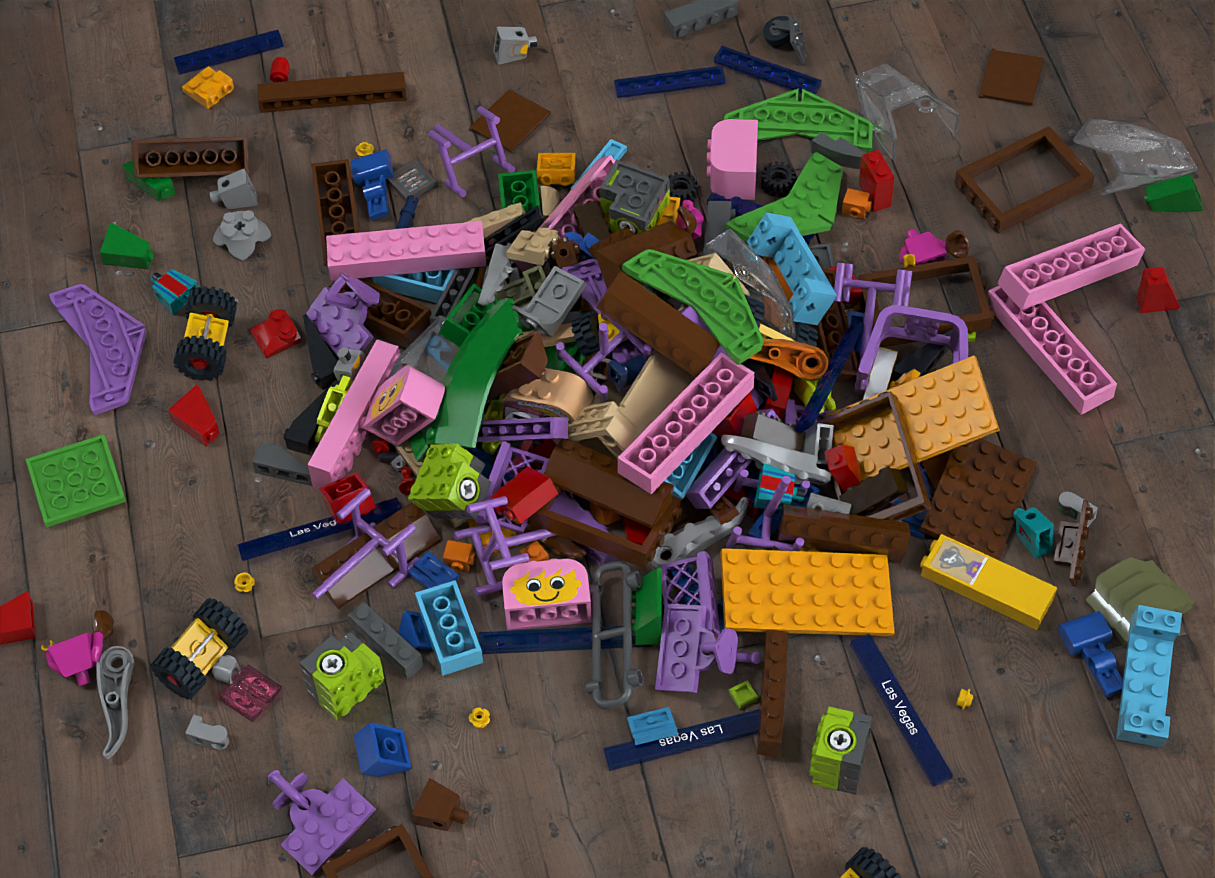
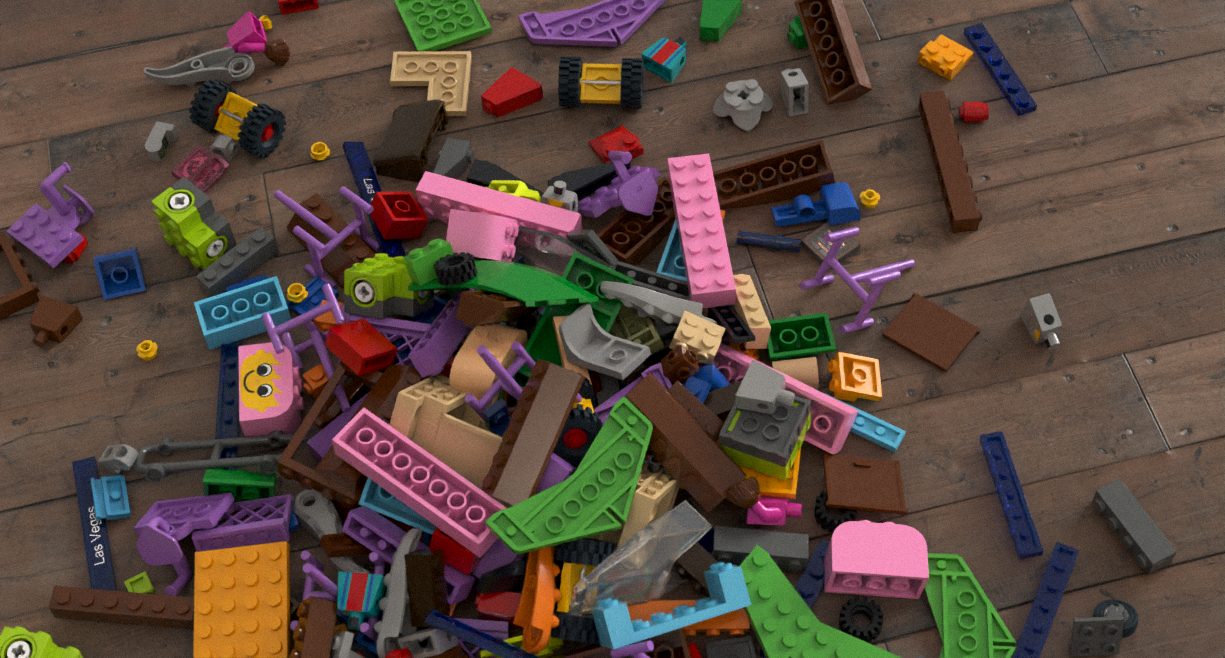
camera: 90 degrees right, 0 degrees up
(155, 475) = (443, 71): none -> tan plate
(247, 492) = (410, 139): none -> dark brown windscreen
(416, 327) = (592, 243): none -> dark grey tile
(431, 576) = (296, 288): none -> yellow plate
(451, 423) = (421, 260): none -> bright green brick
(461, 390) = (455, 269): none -> black tyre
(608, 184) = (762, 390): none -> light grey torso
(613, 716) = (121, 457): none -> light grey leg
(665, 161) = (863, 484): none -> reddish brown piece

